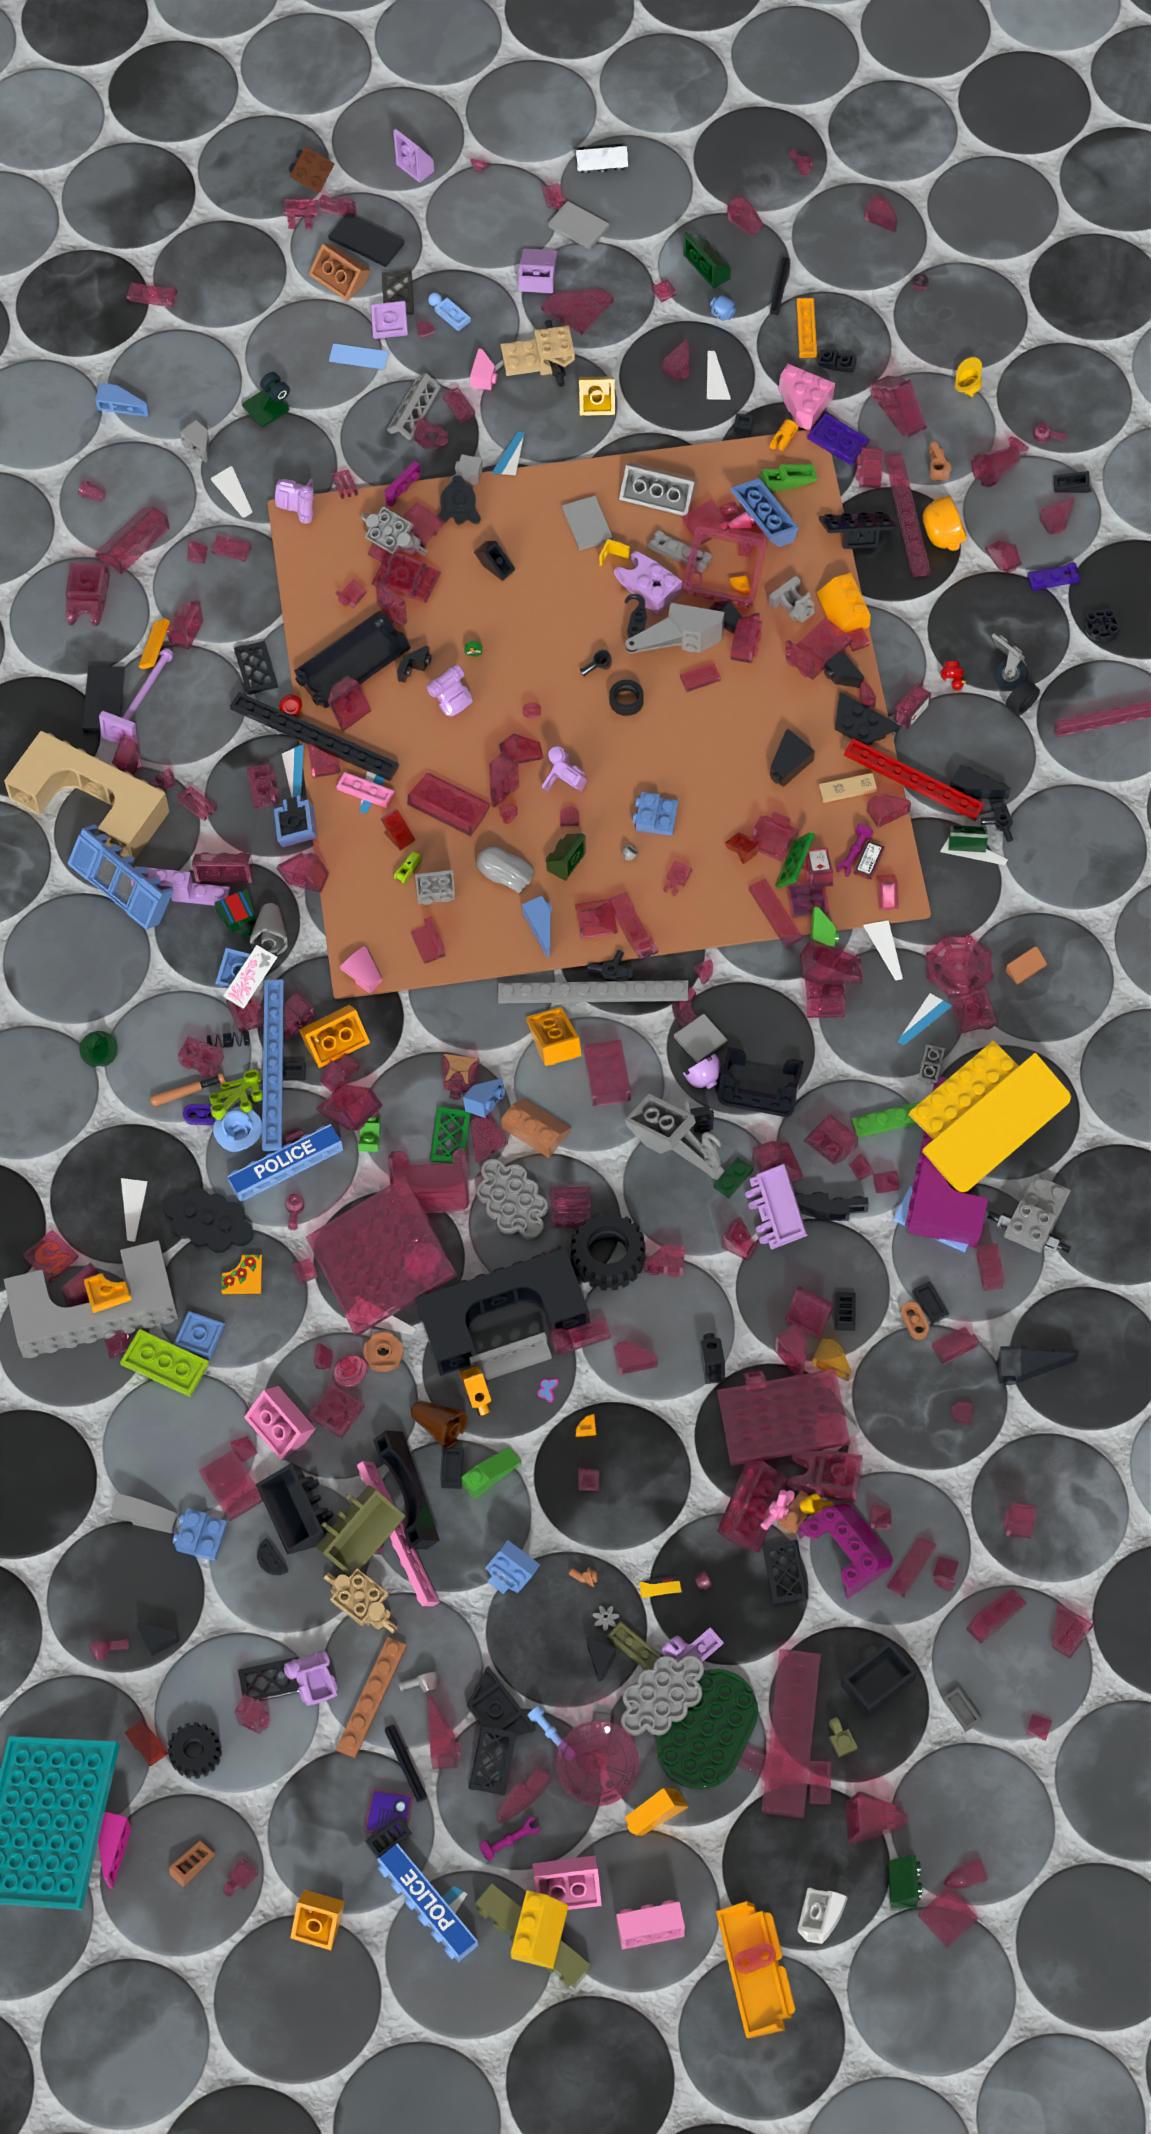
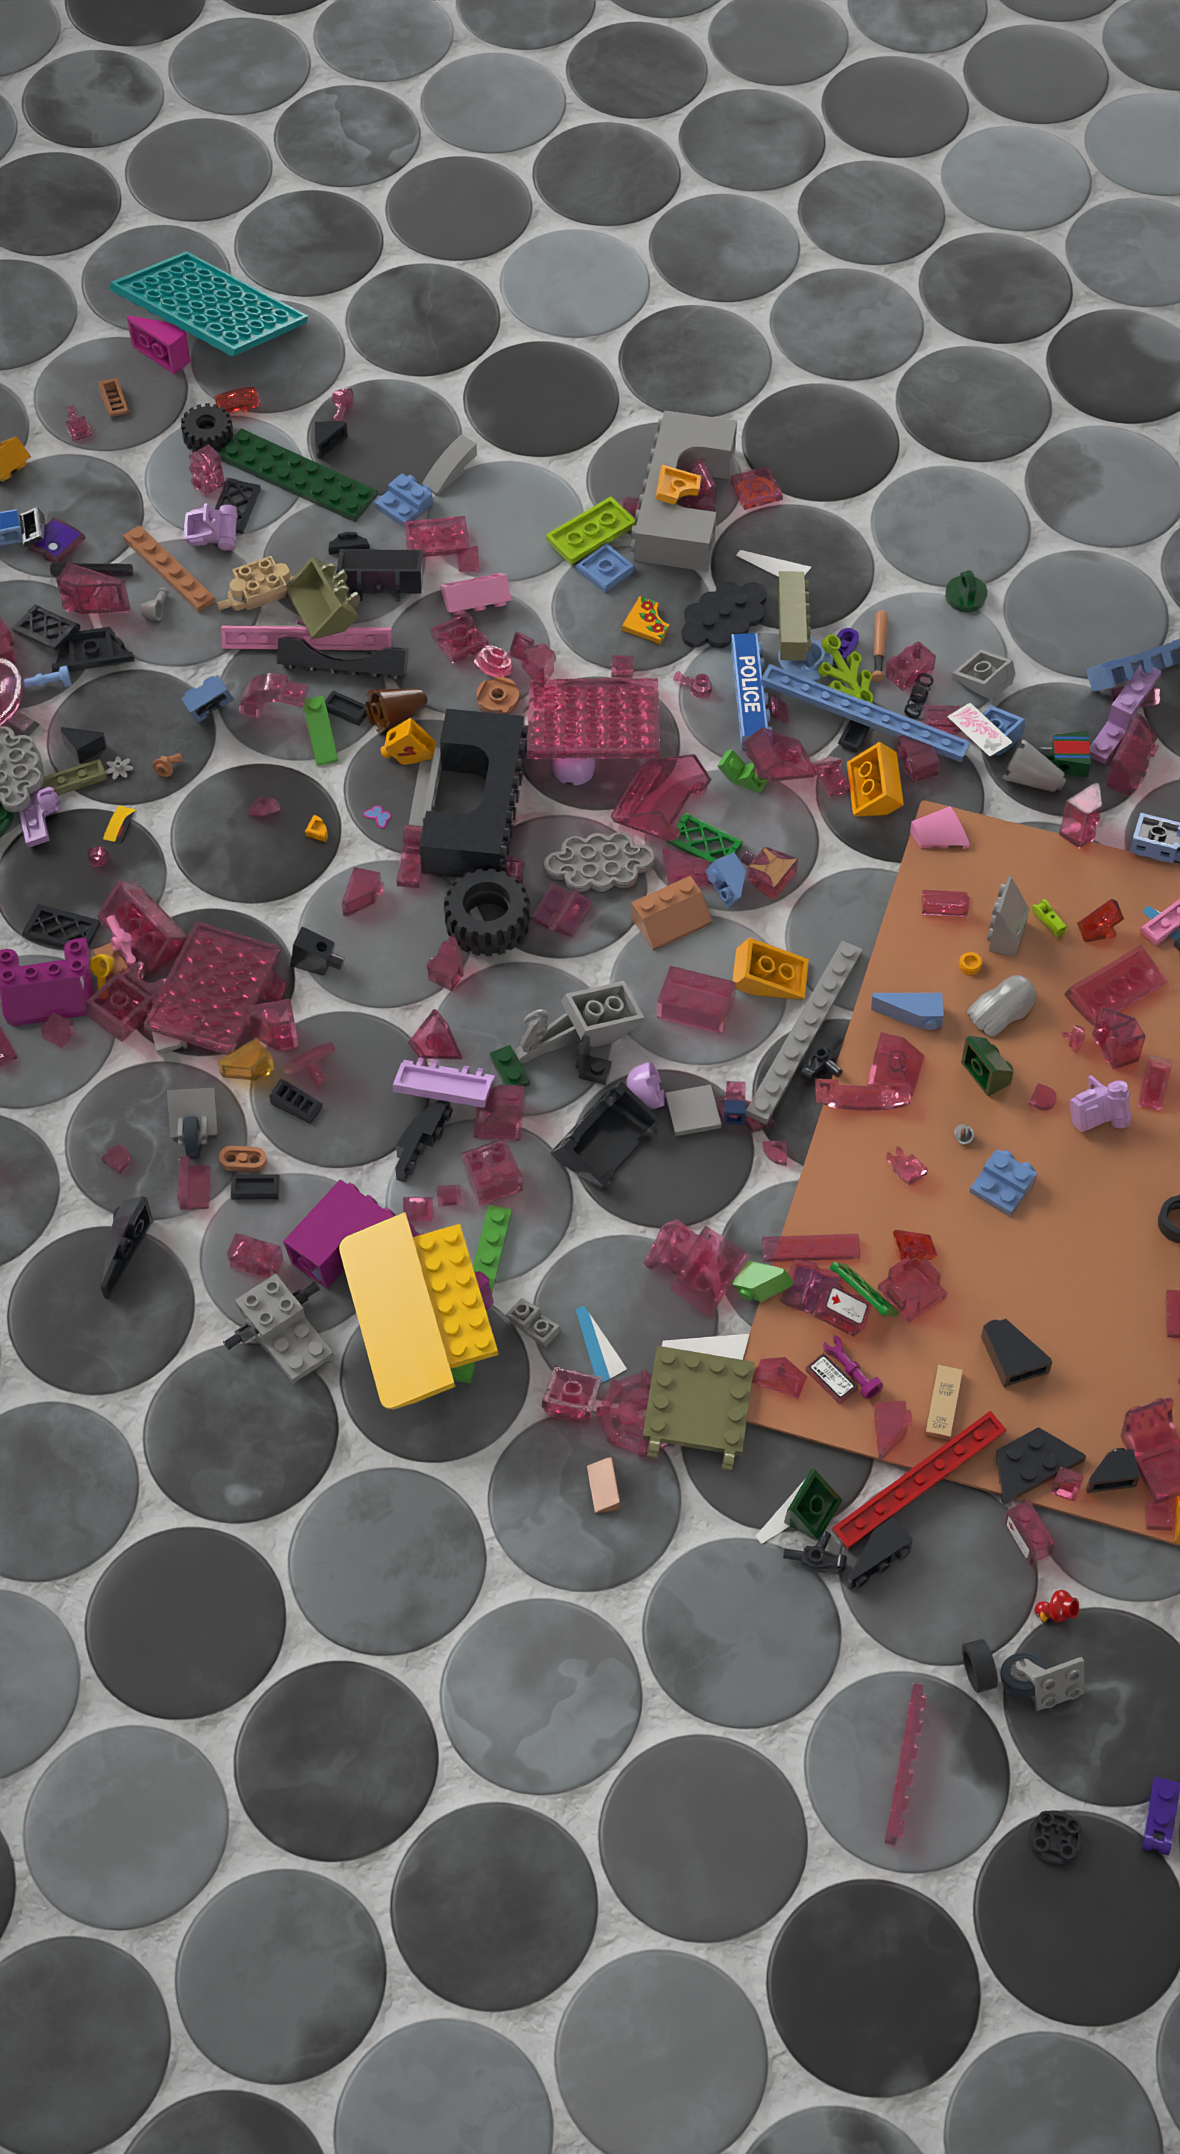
camera: 115 degrees right, 5 degrees down
(183, 1002) = (986, 673): none -> light grey slope
(199, 1153) = (793, 616): none -> brick
(209, 1645) = (298, 475): none -> dark green plate
(339, 1329) = (538, 663): none -> clear pink slope
(475, 905) = (970, 963): none -> light orange tile
(481, 1519) = (271, 688): none -> clear pink arch
(685, 1006) = (735, 1102): none -> leg
(905, 1371) = (192, 1117): none -> light grey plate
(936, 930) = (698, 1402): none -> olive plate

